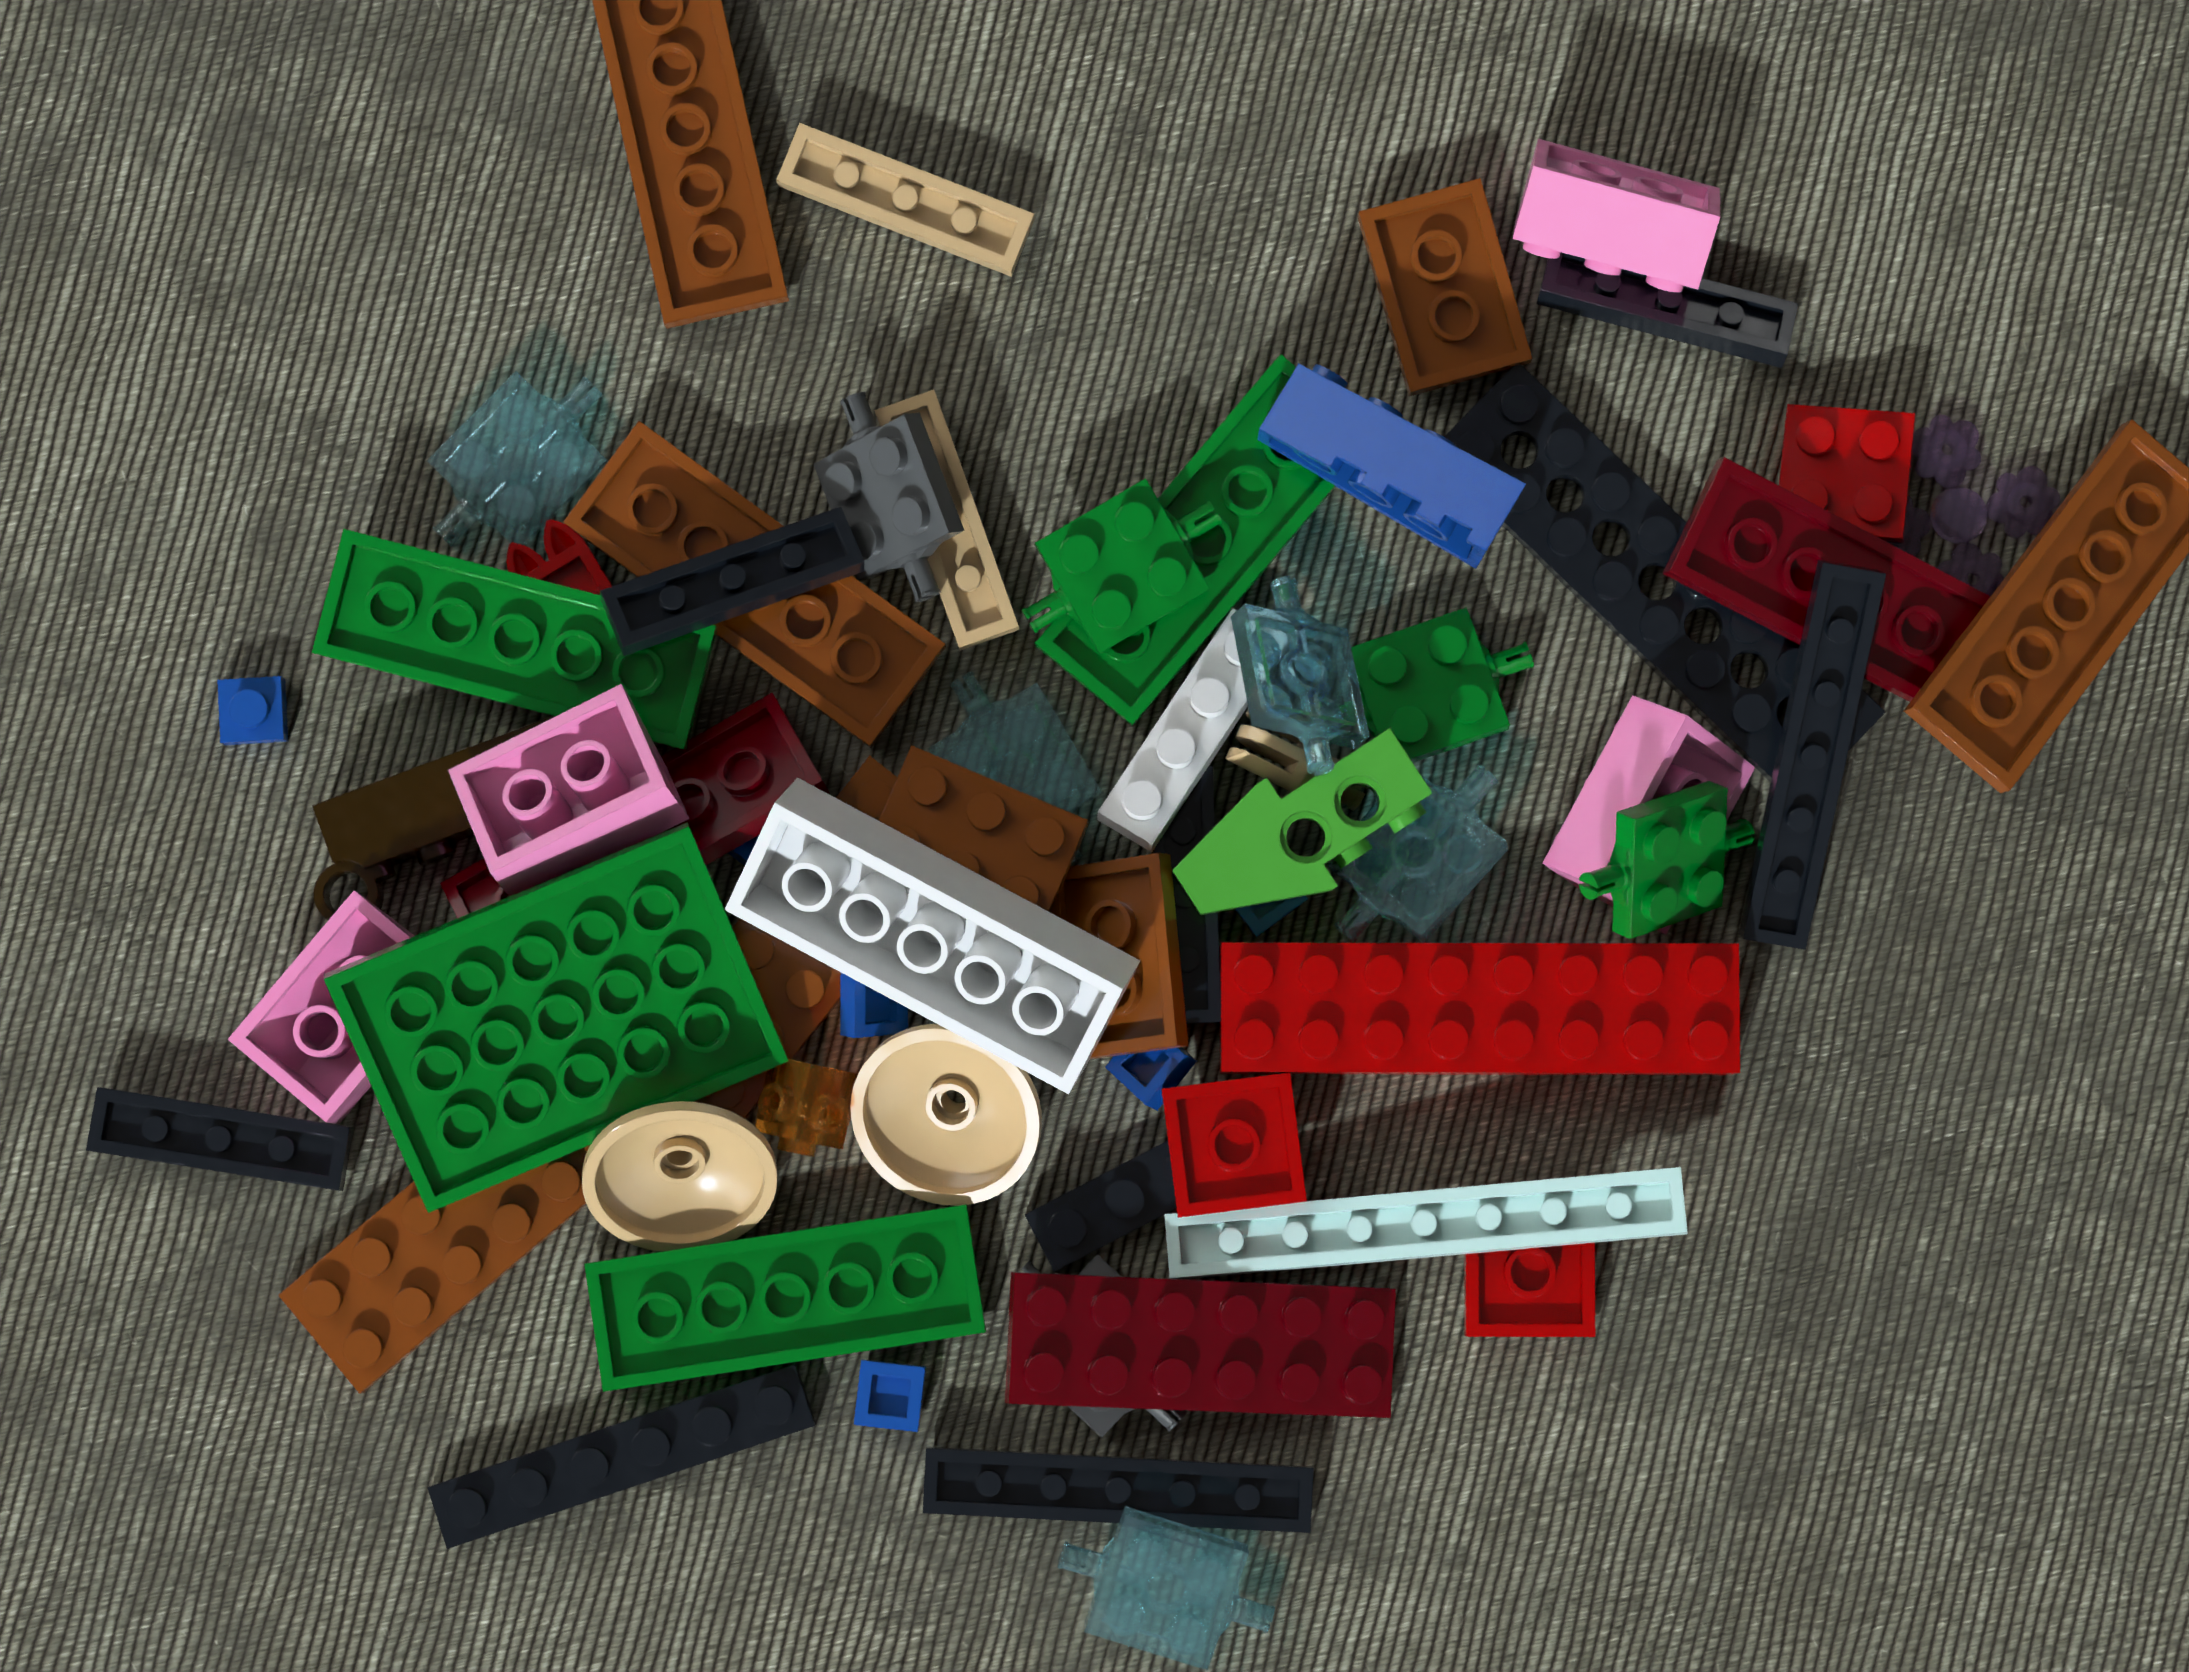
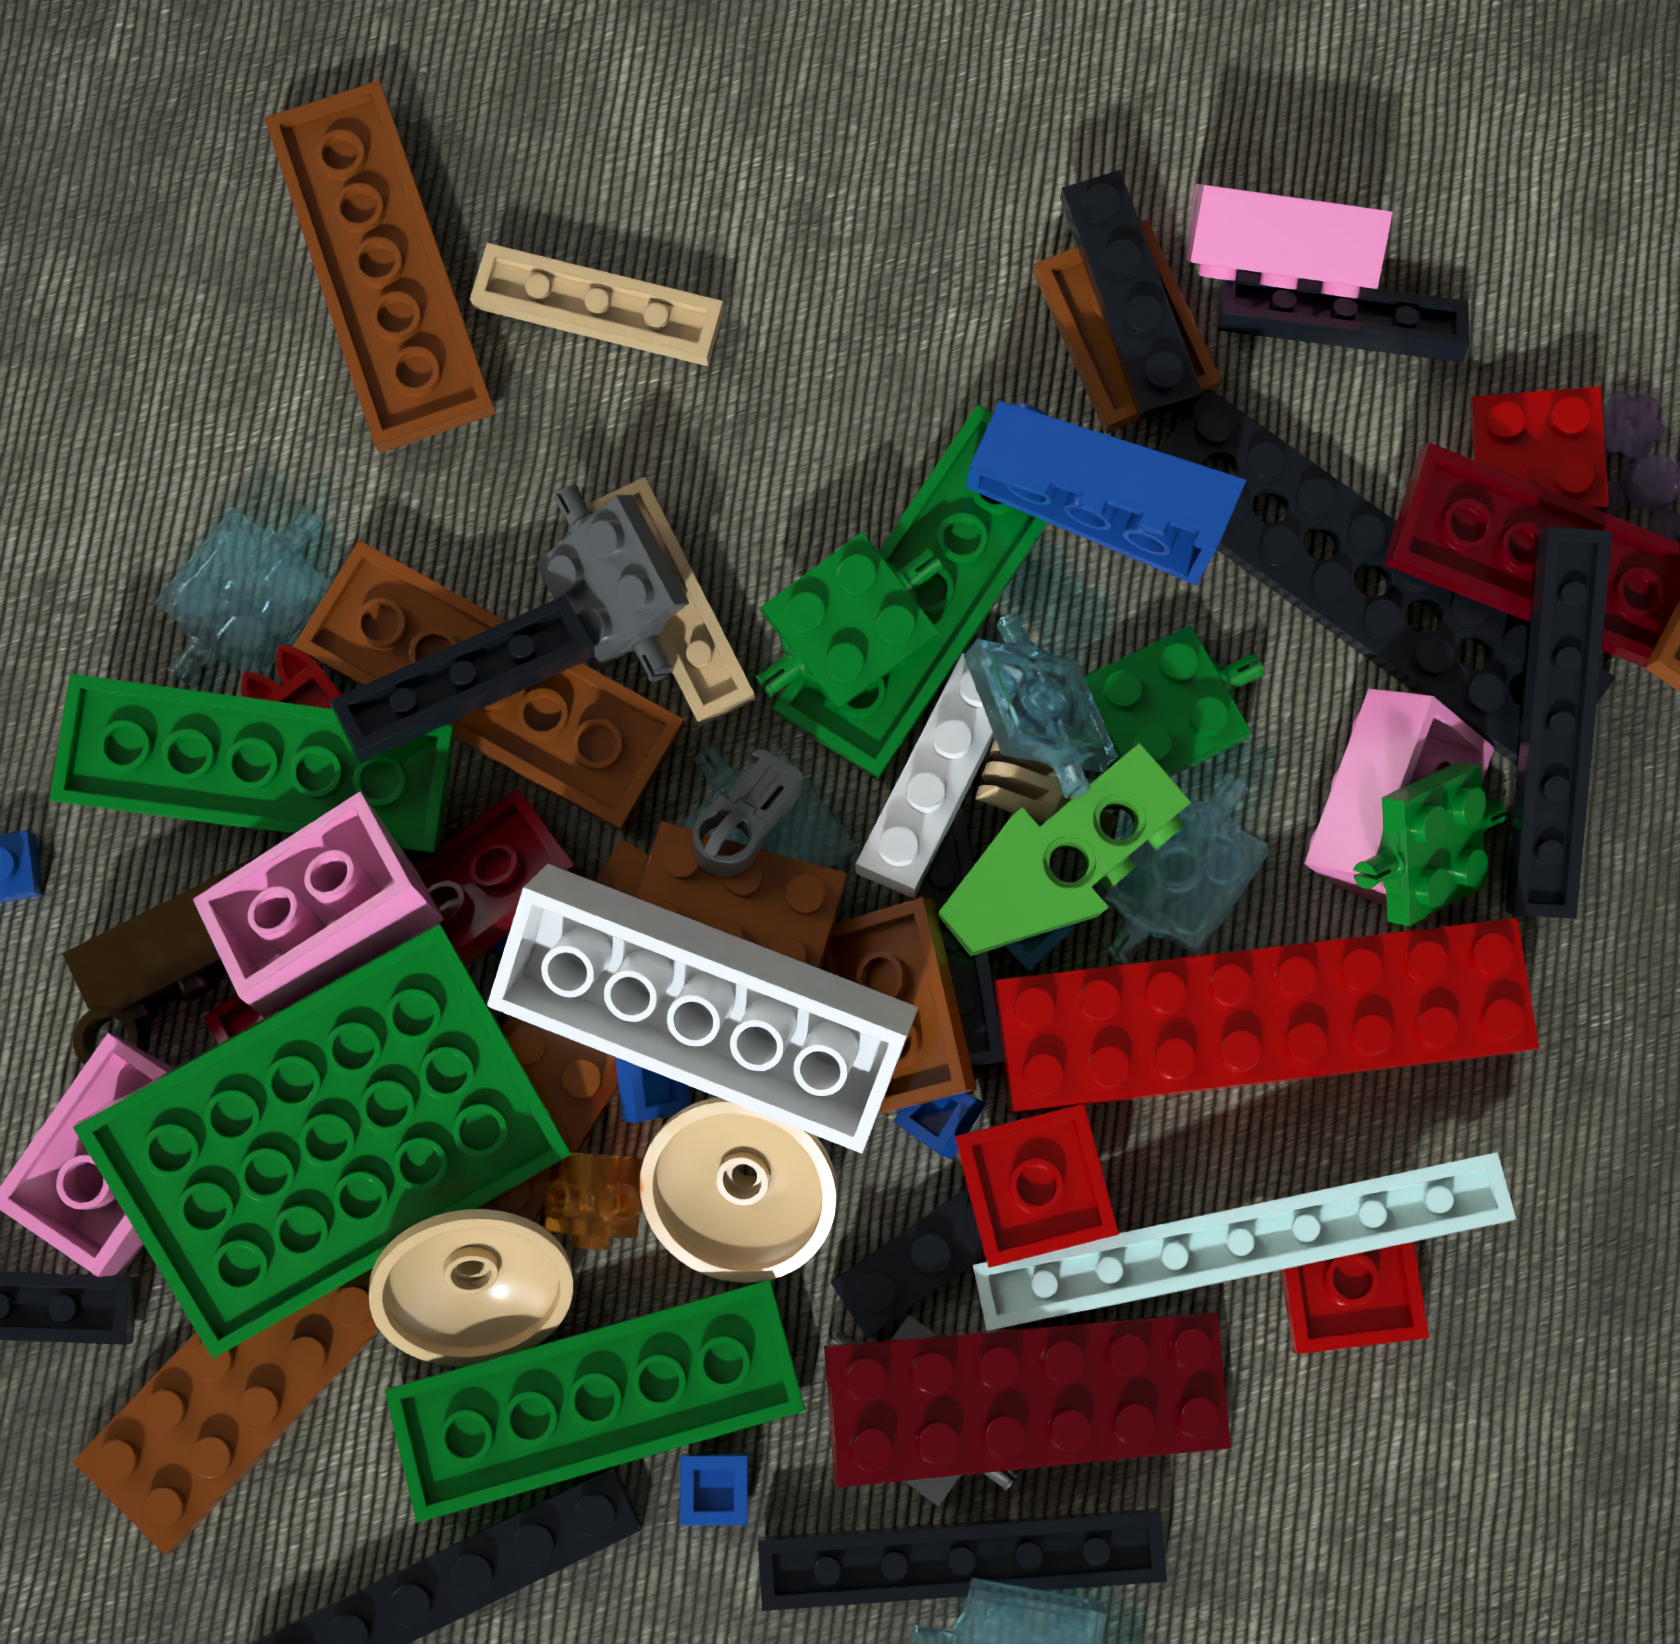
camera: 10 degrees left, 5 degrees down
(1004, 742) = (752, 805): none -> dark grey piece
(1450, 259) = (1130, 295): none -> black plate

